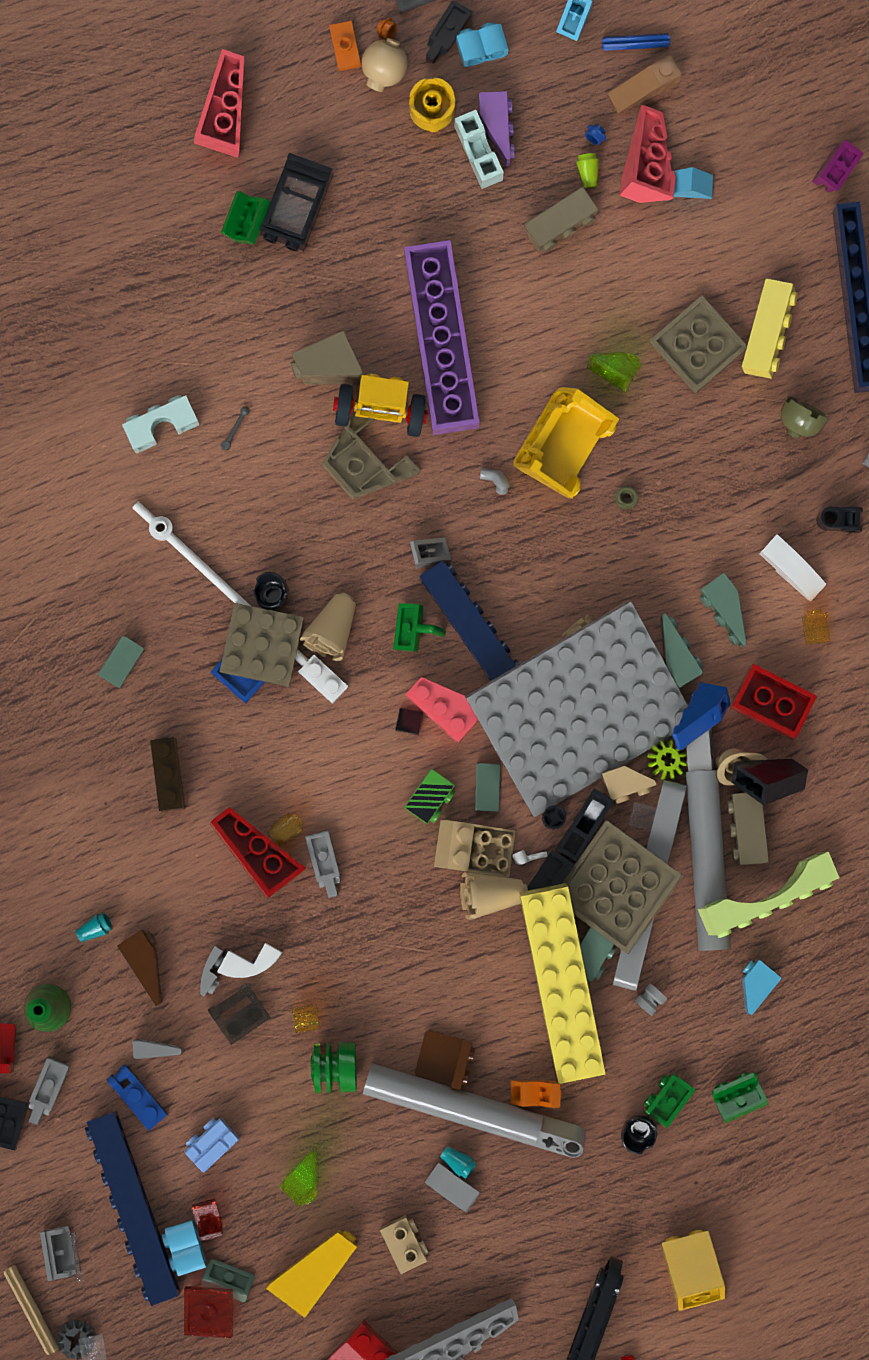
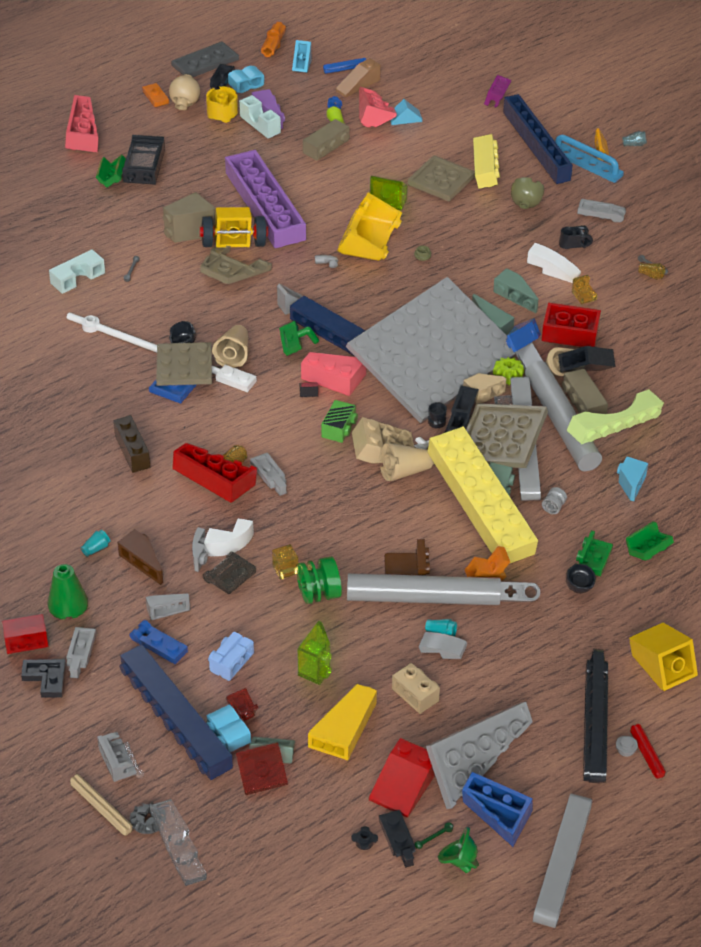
camera: 15 degrees left, 40 degrees down
(121, 661) = (77, 394): sand green slope -> none
(487, 787) = (380, 410): sand green slope -> none

